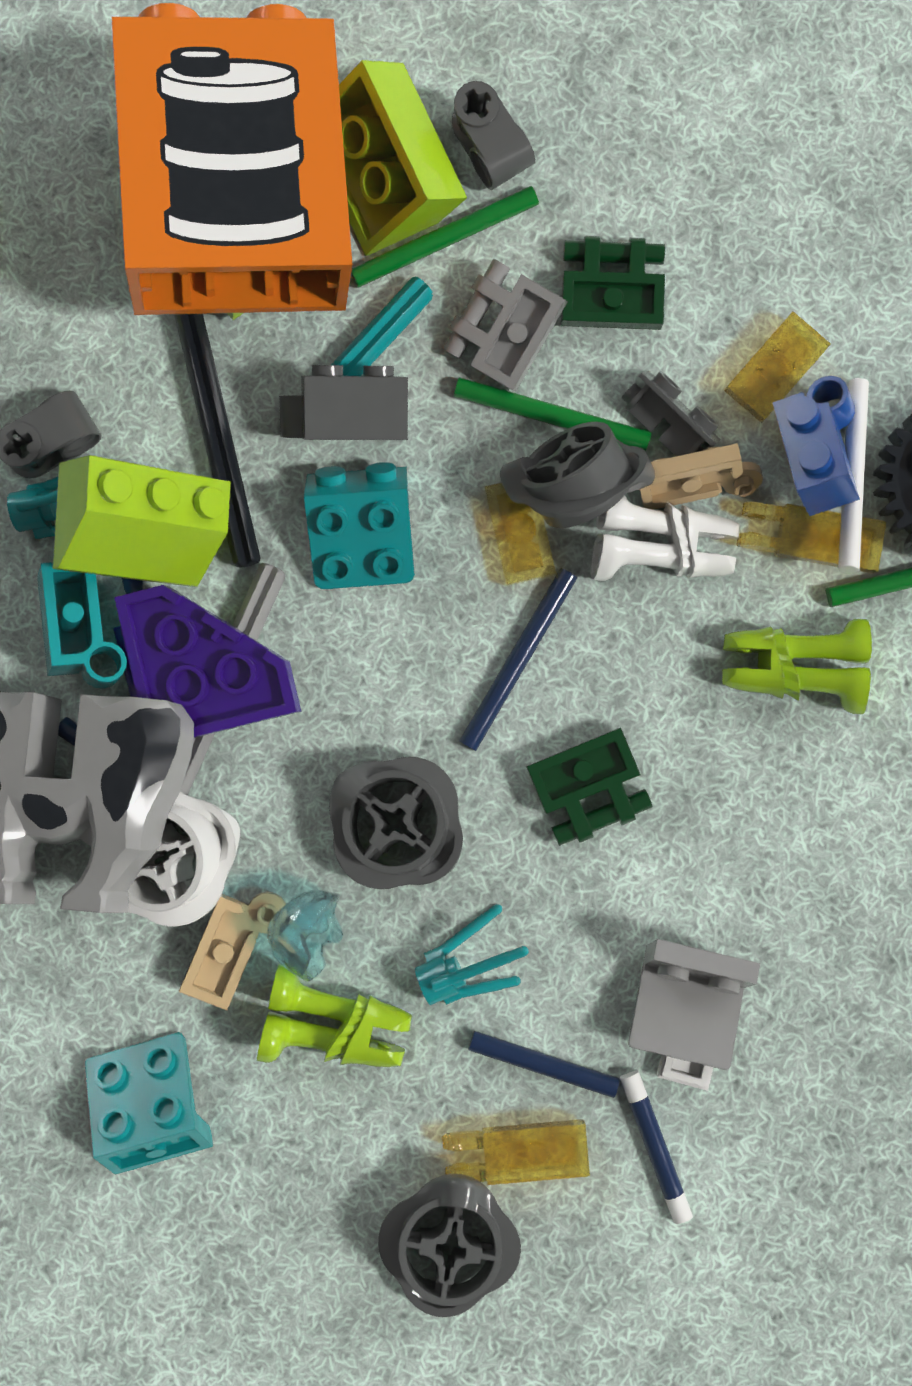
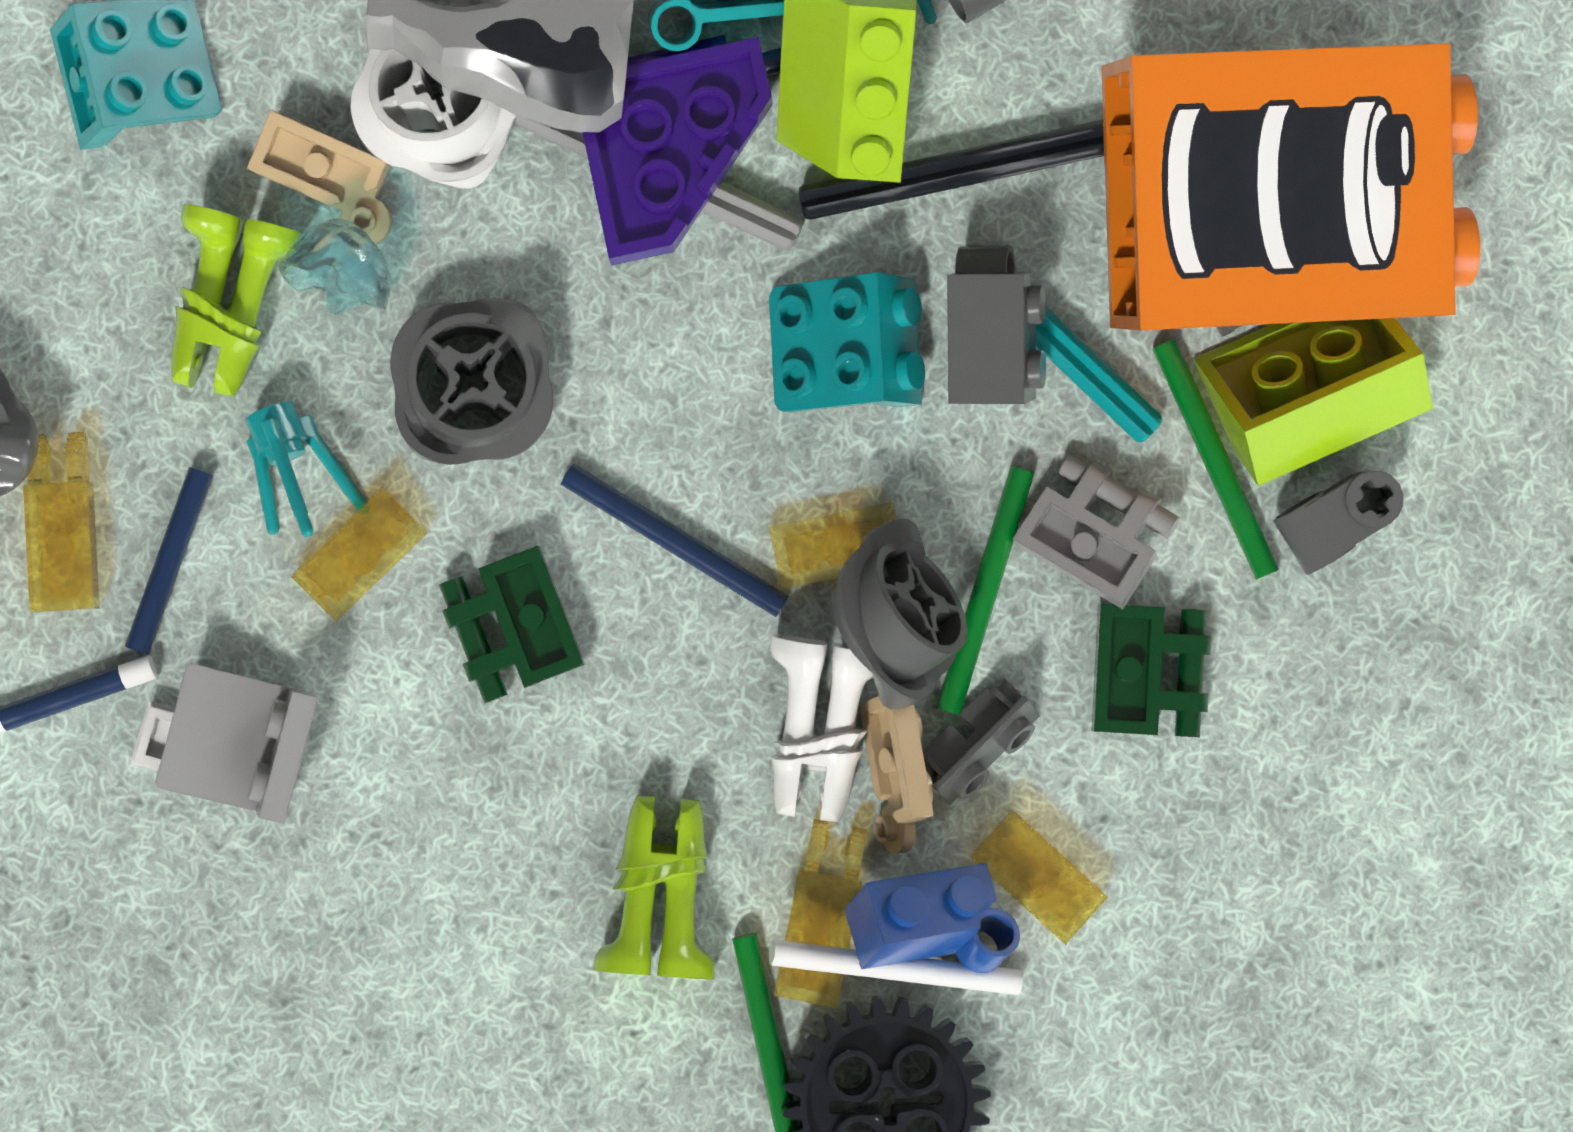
camera: 95 degrees right, 0 degrees up
(535, 910) = (359, 554): none -> clear yellow plate

